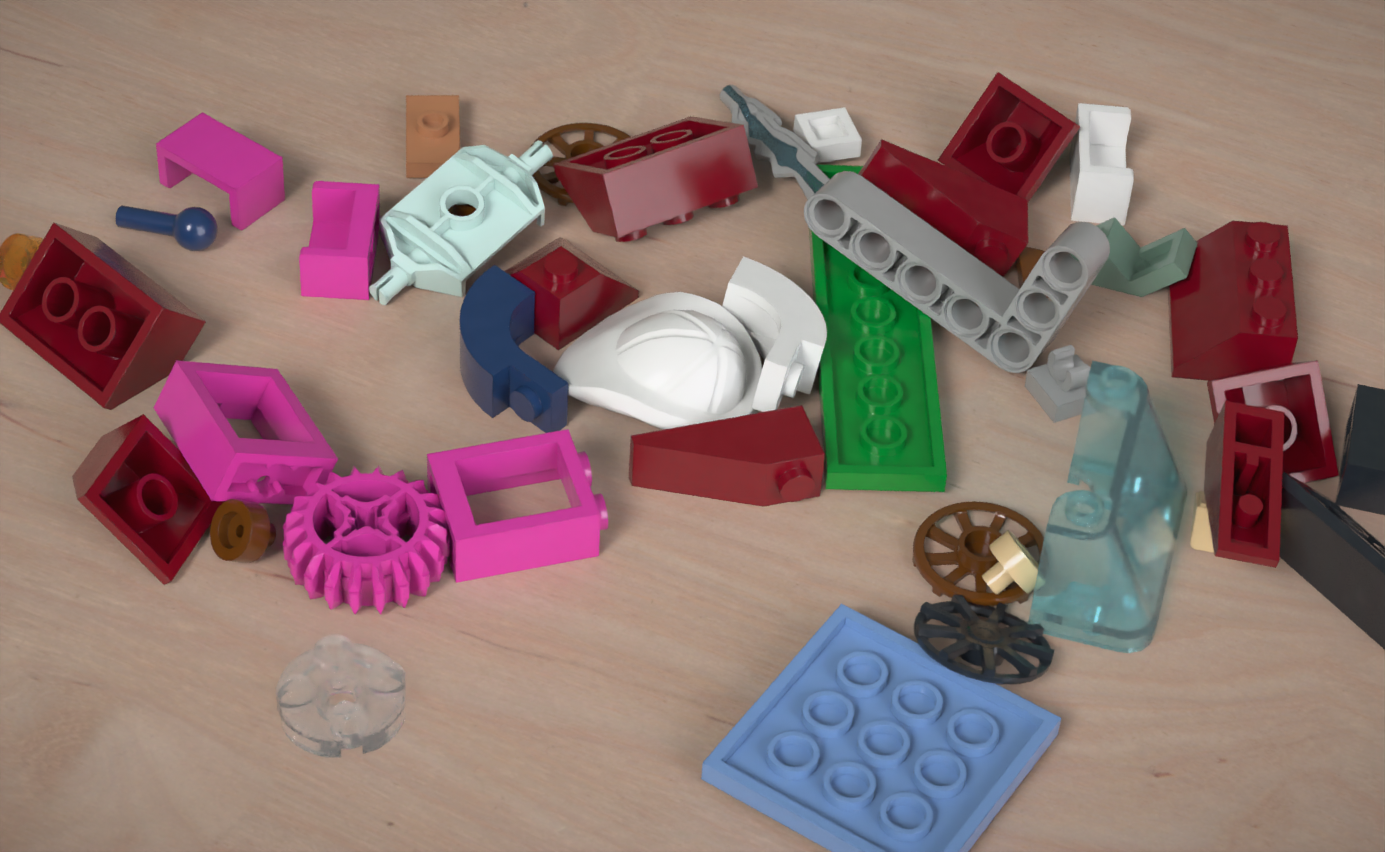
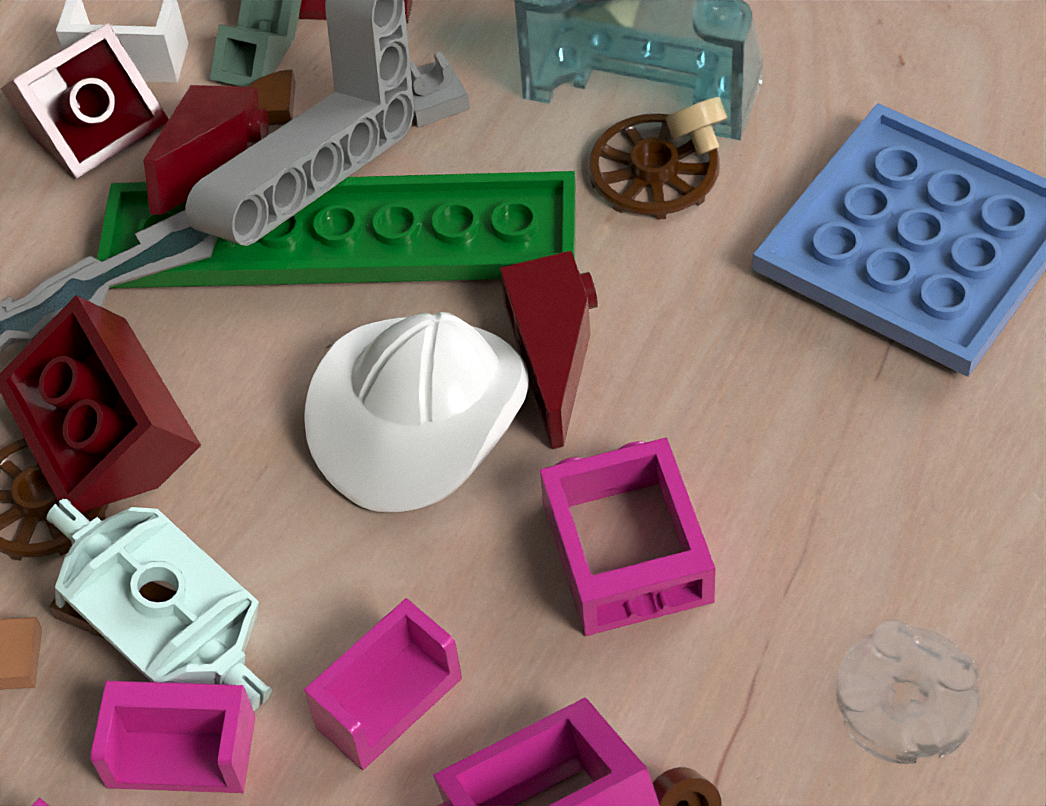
camera: 80 degrees left, 10 degrees up
(367, 557) = (687, 710): dark pink gear -> none
(373, 351) = (384, 683): none -> dark pink panel
(494, 369) = (378, 569): dark blue arch -> none
(570, 291) = (266, 512): dark red slope -> none
(782, 326) = (370, 288): white arch -> none
(829, 134) = (33, 259): white plate -> none
(983, 641) = (782, 157): black wheel -> none

